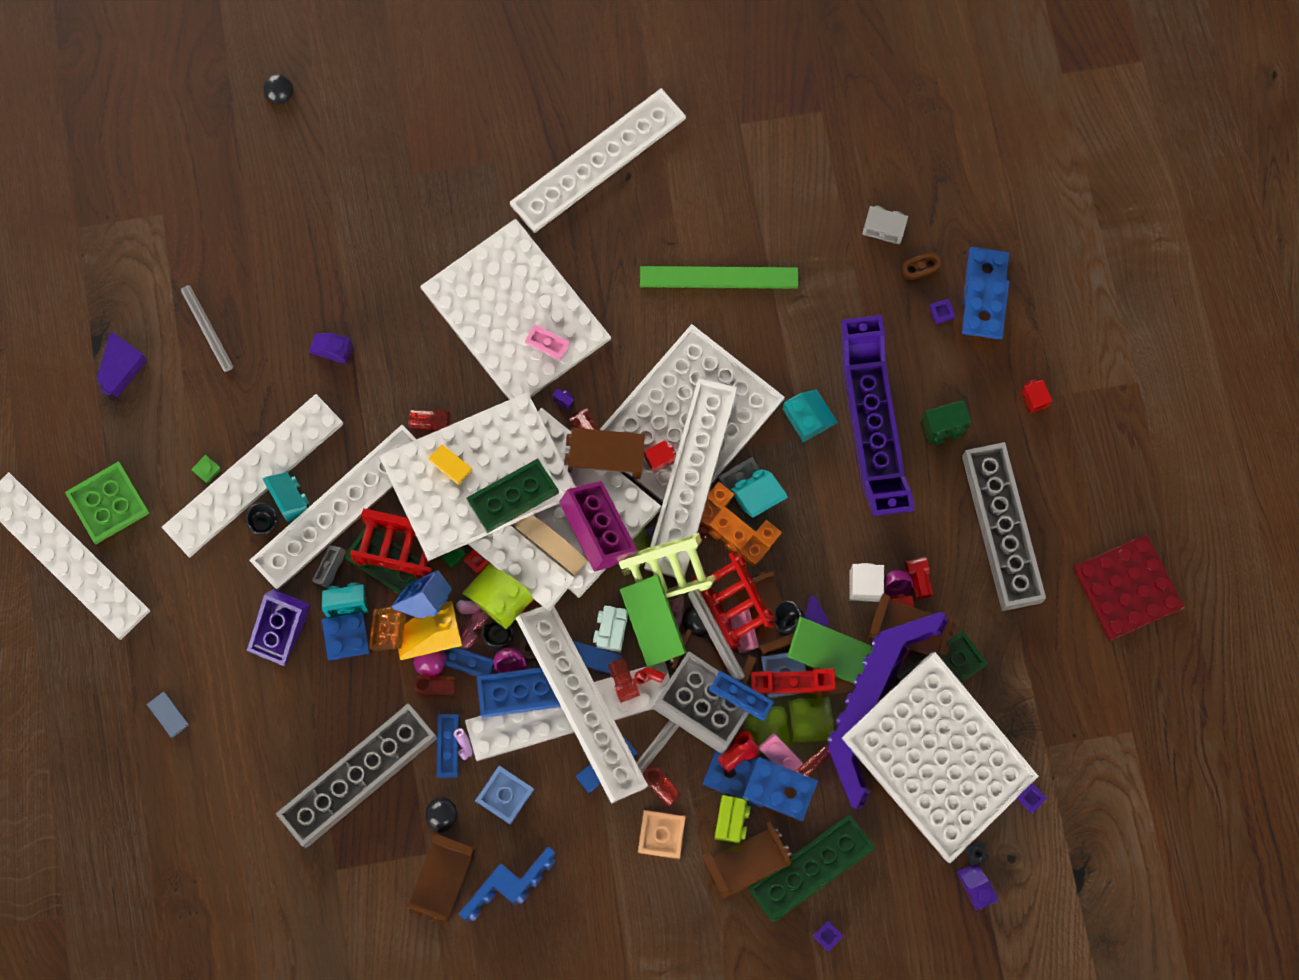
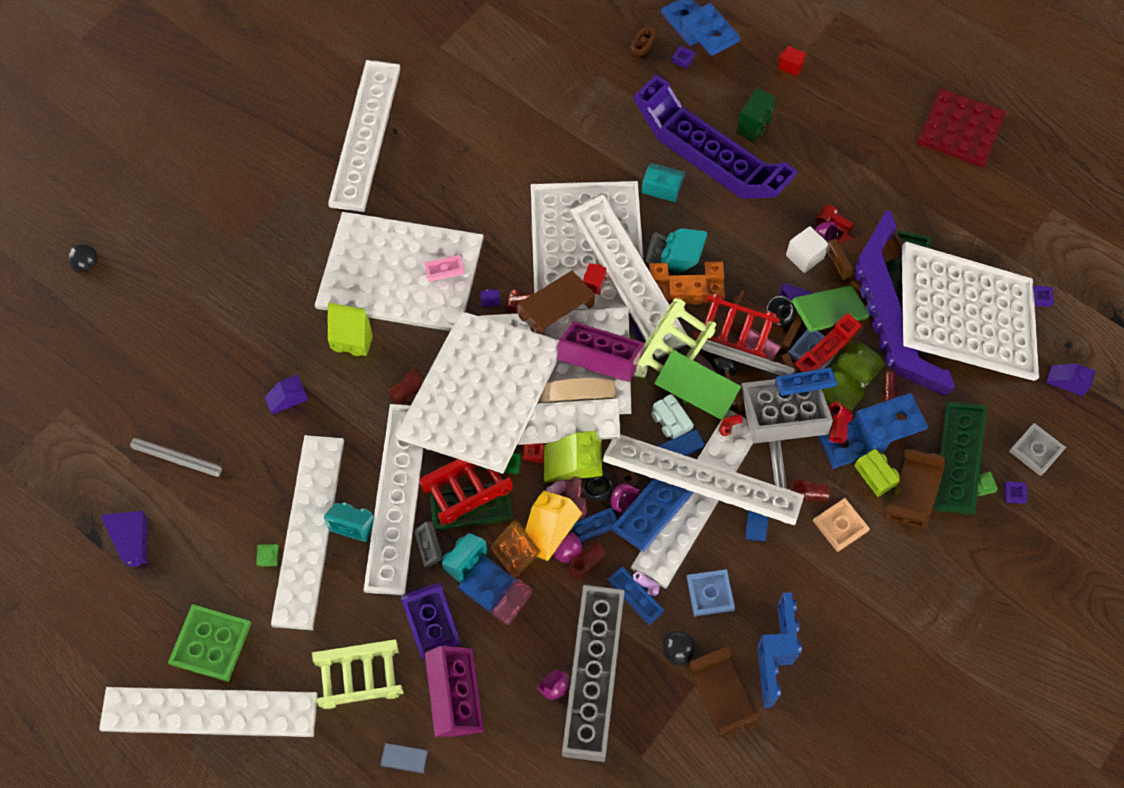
camera: 40 degrees left, 10 degrees down
(191, 601) = (345, 656): none -> yellowish green fence
(245, 697) = (453, 691): none -> magenta slope
(261, 519) = (345, 553): black hair -> none
(320, 758) = (554, 684): none -> magenta hair
(349, 667) = (512, 602): none -> clear pink slope
(421, 335) = (348, 329): none -> lime slope
(423, 596) = (522, 500): blue slope -> none
(450, 464) = (456, 395): yellow tile -> none
(512, 495) = (522, 378): dark green plate -> none
(624, 684) = (721, 444): clear red piece -> none
(718, 277) = (518, 145): bright green tile -> none
(780, 753) = (860, 400): bright pink plate -> none
(812, 907) = (986, 484): none -> bright green plate
(884, 919) = (1037, 449): none -> light grey plate
(885, 224) = (596, 34): light grey brick -> none
(970, 851) = (1047, 358): black plate -> none
(1003, 527) = (855, 148): light grey brick -> none

